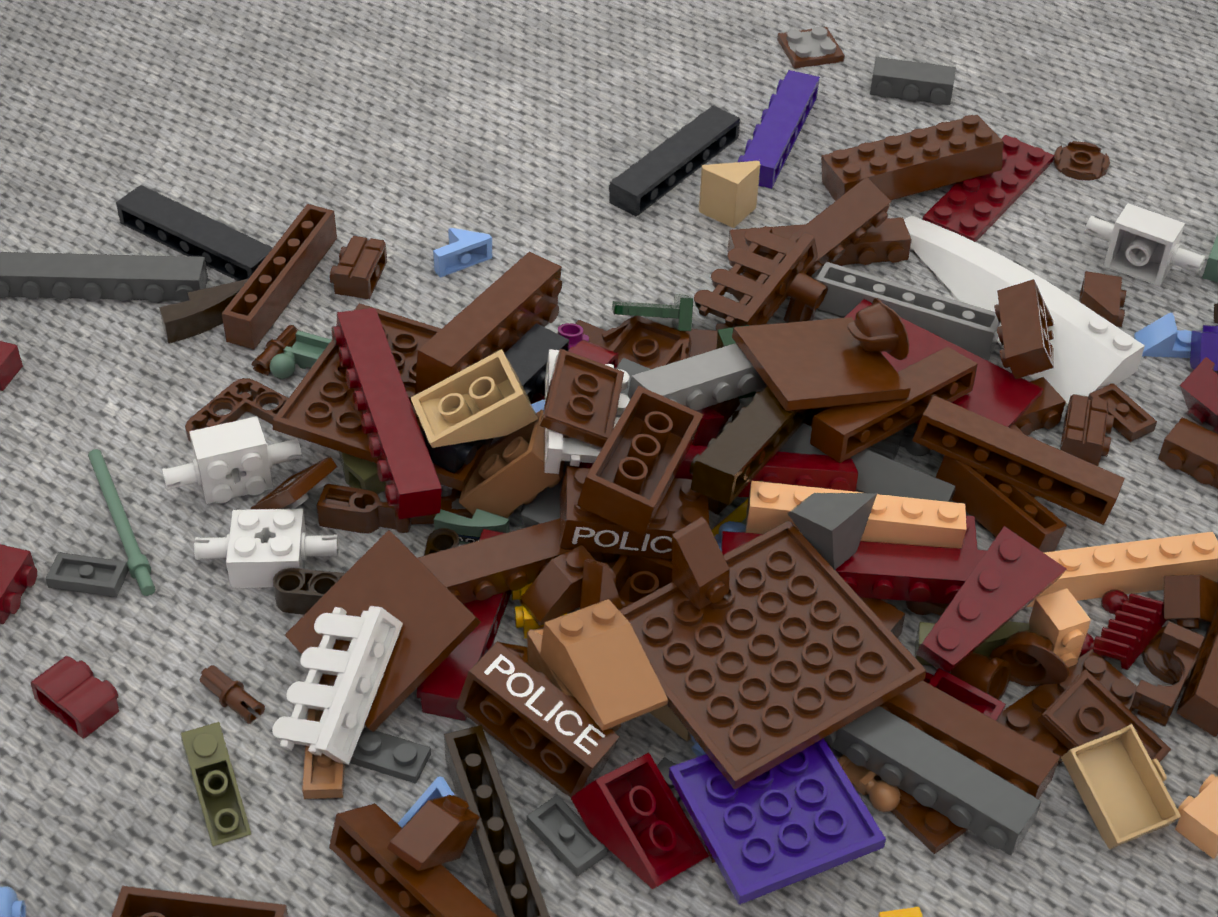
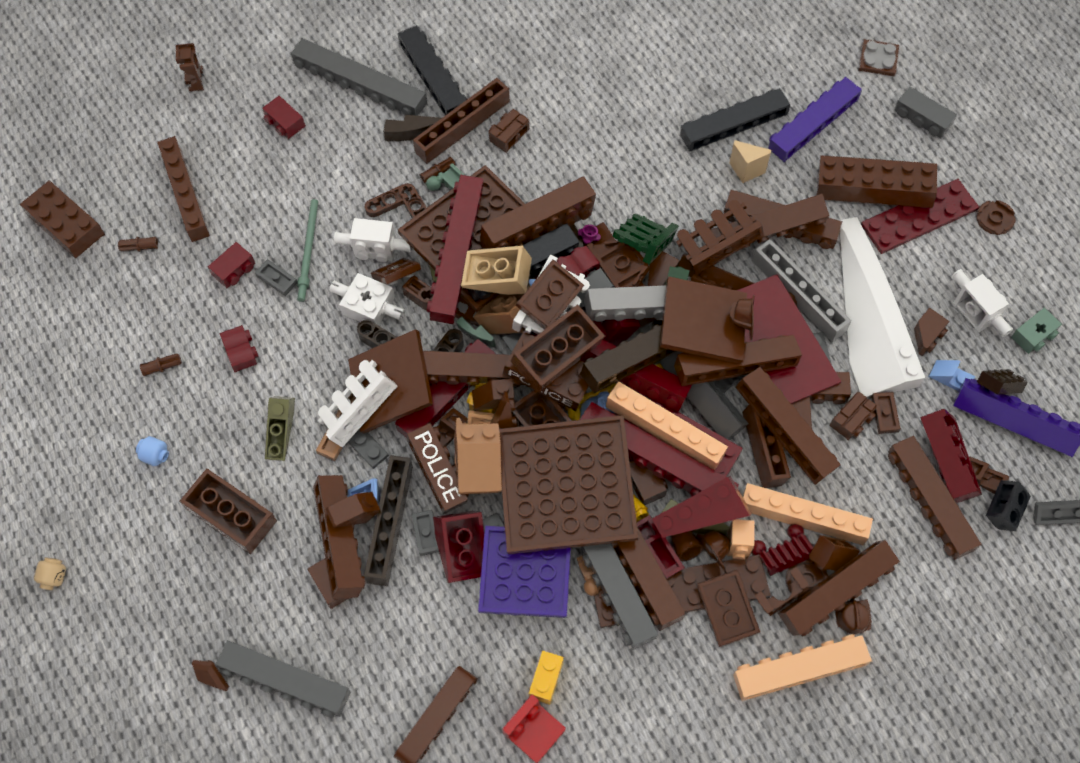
camera: 30 degrees right, 20 degrees up
(231, 693) = (311, 379): reddish brown axle -> none
(463, 251) = (574, 142): light blue slope -> none
(699, 564) = (552, 426): reddish brown slope -> none
(805, 298) = (741, 259): reddish brown piece -> none
(834, 523) = (644, 428): dark grey slope -> none
(1024, 329) = (851, 340): reddish brown wedge -> none
(1121, 786) = (713, 642): tan container -> none

